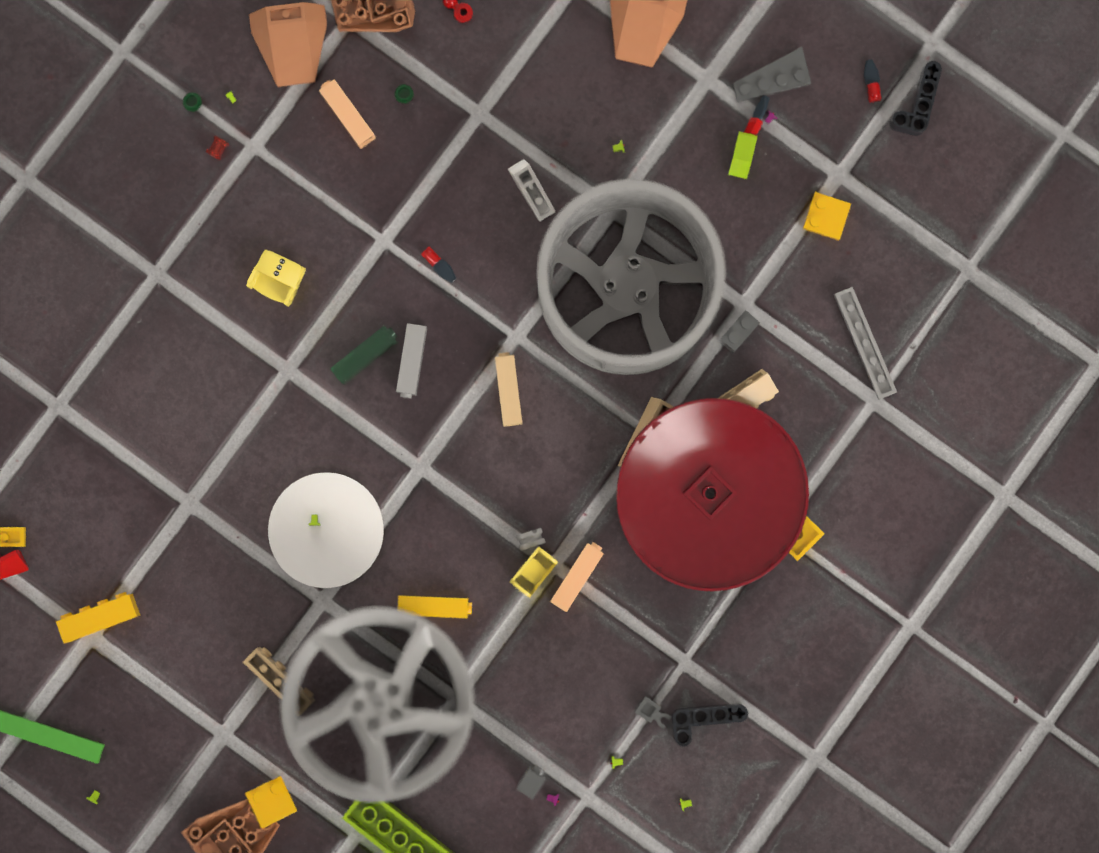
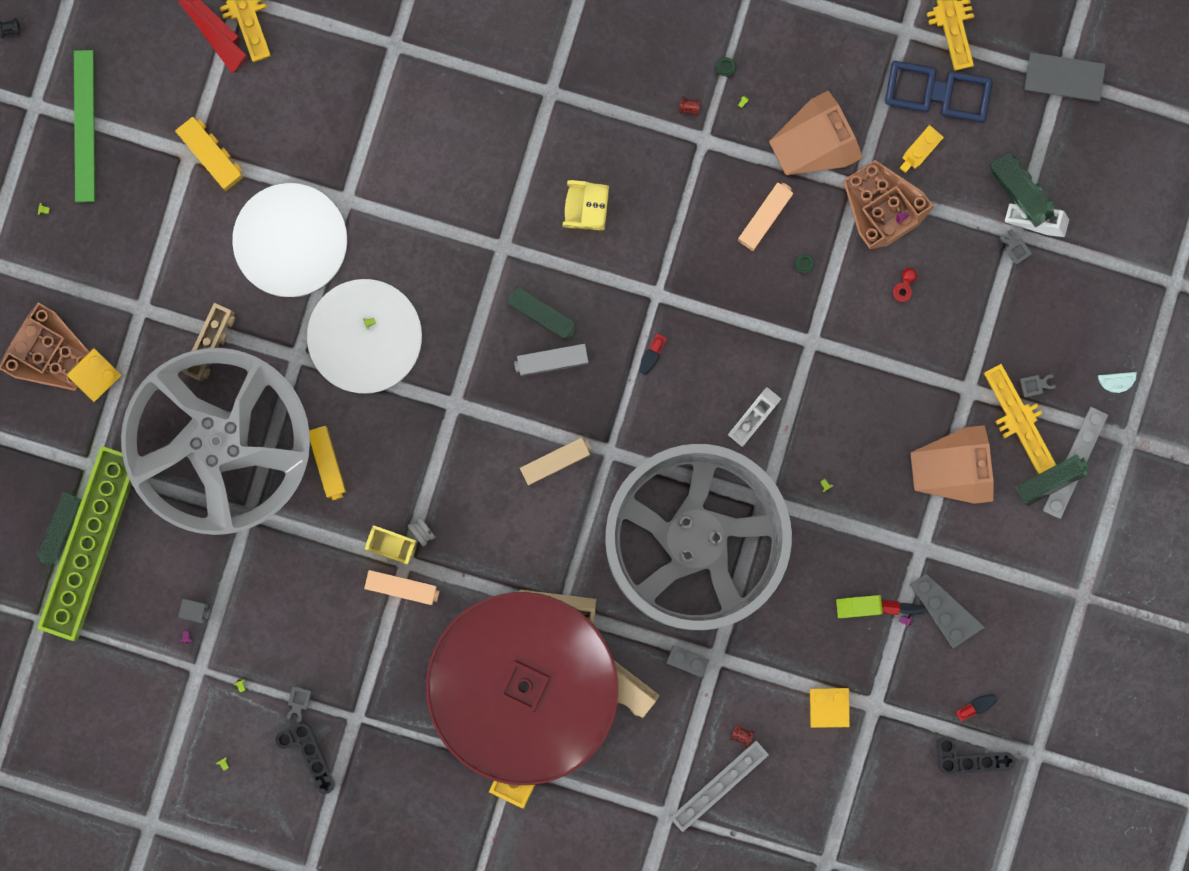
camera: 75 degrees right, 0 degrees up
(208, 569) = (289, 240): none -> white tile
(825, 305) = (742, 735): none -> clear red bush

